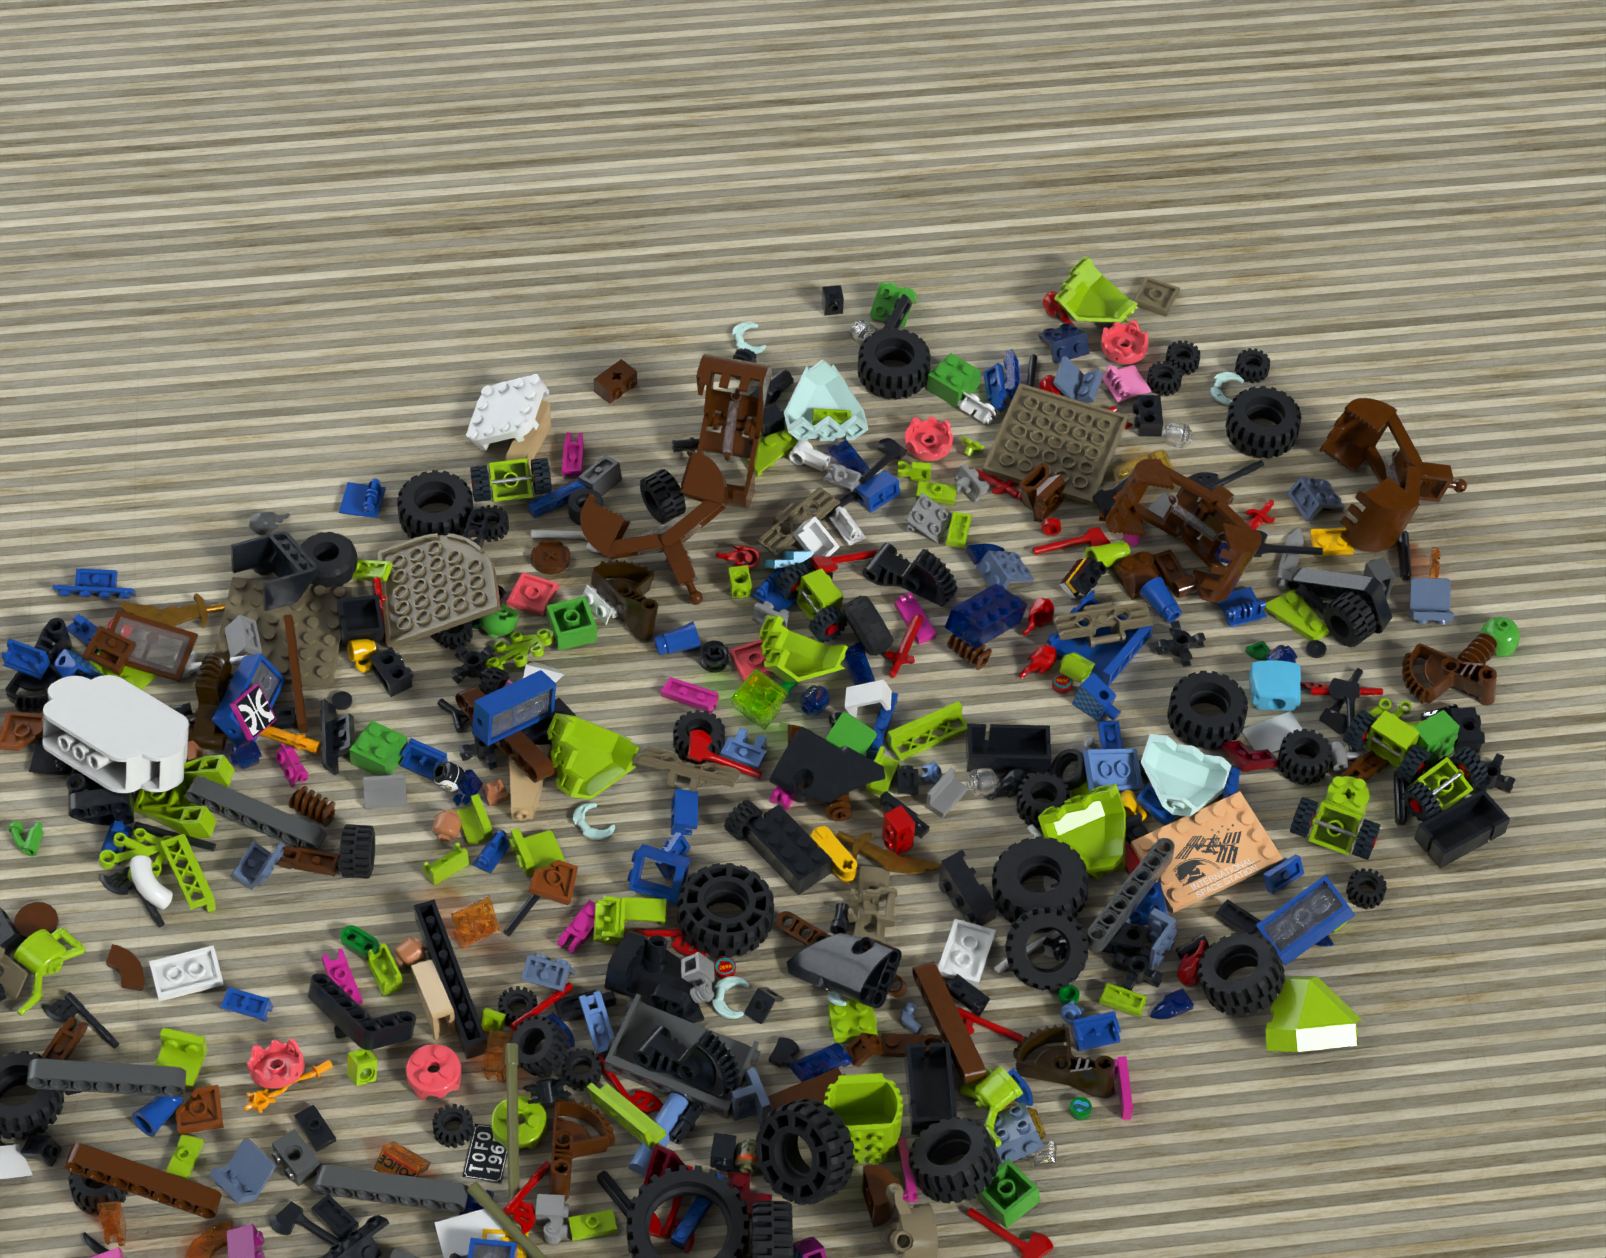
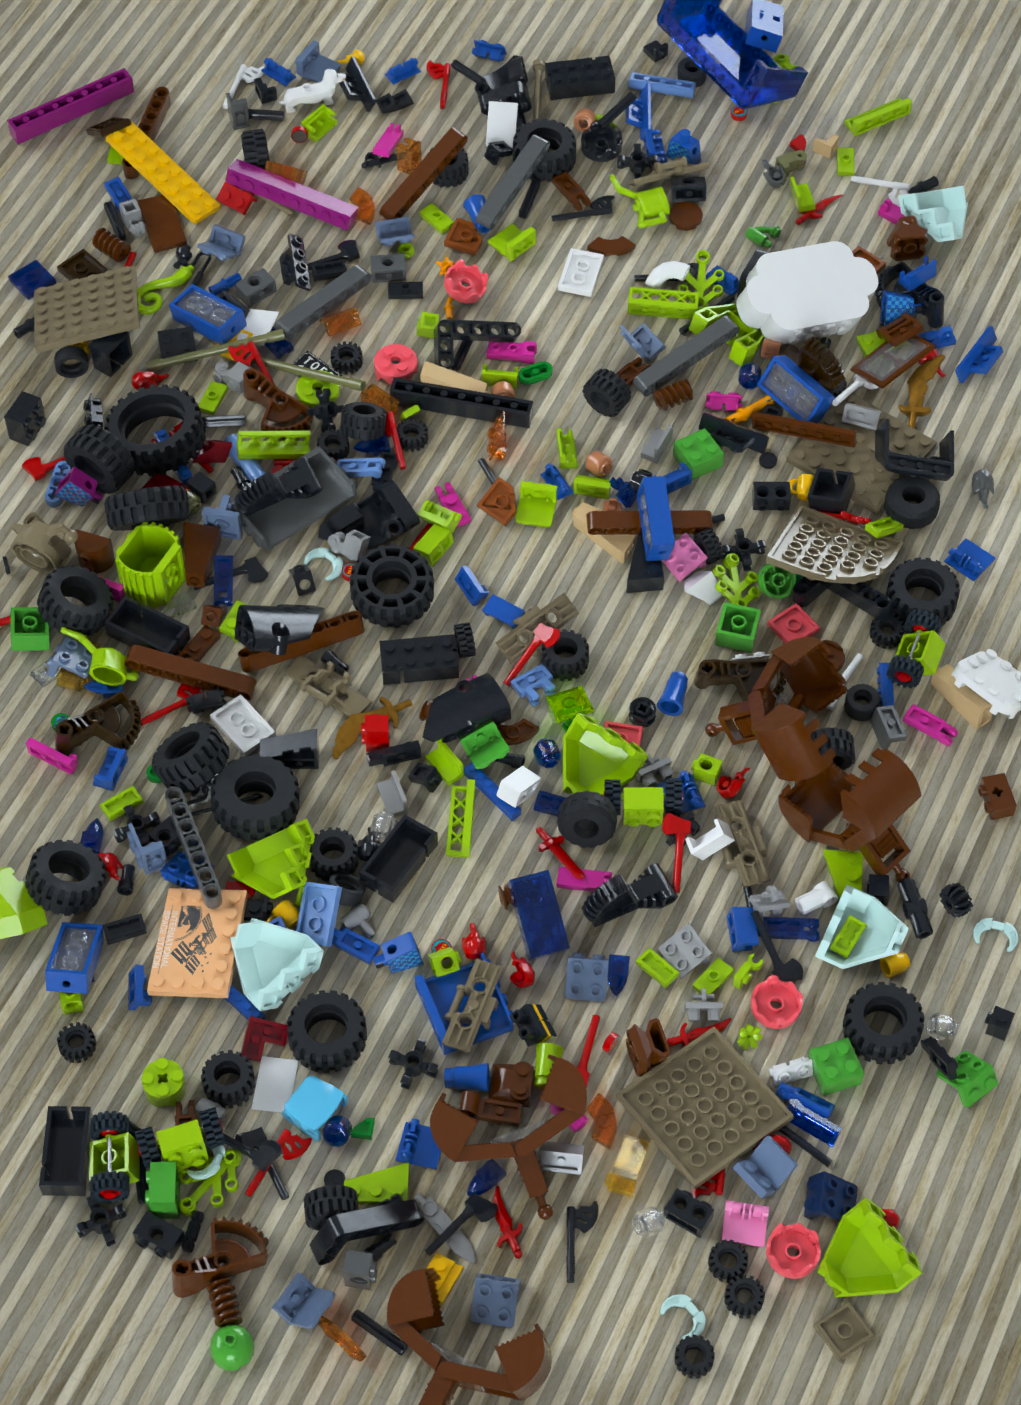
camera: 125 degrees right, 5 degrees up
(247, 1004) = (528, 290): blue hinge -> none
(253, 712) = (776, 380): tile -> none
(547, 973) = (423, 457): sand blue bracket -> none
(588, 756) = (595, 569): lime panel -> none
(590, 833) = (551, 550): light aqua piece -> none
(653, 889) = (454, 558): blue window -> none
(690, 694) = (614, 676): dark pink hinge -> none
(788, 559) = (702, 807): medium azure slope -> none
(843, 862) = (393, 685): yellow piece -> none
(847, 526) = (717, 885): white hinge -> none
(908, 1017) = (218, 658): sand blue arm -> none
(932, 771) = (420, 798): medium blue plate -> none
(1071, 1012) = (136, 760): medium blue plate -> none
(1105, 499) = (610, 1102): black piece -> none
(1257, 439) = (615, 1278): black tyre -> none
(1335, 827) = (139, 1045): brick -> none

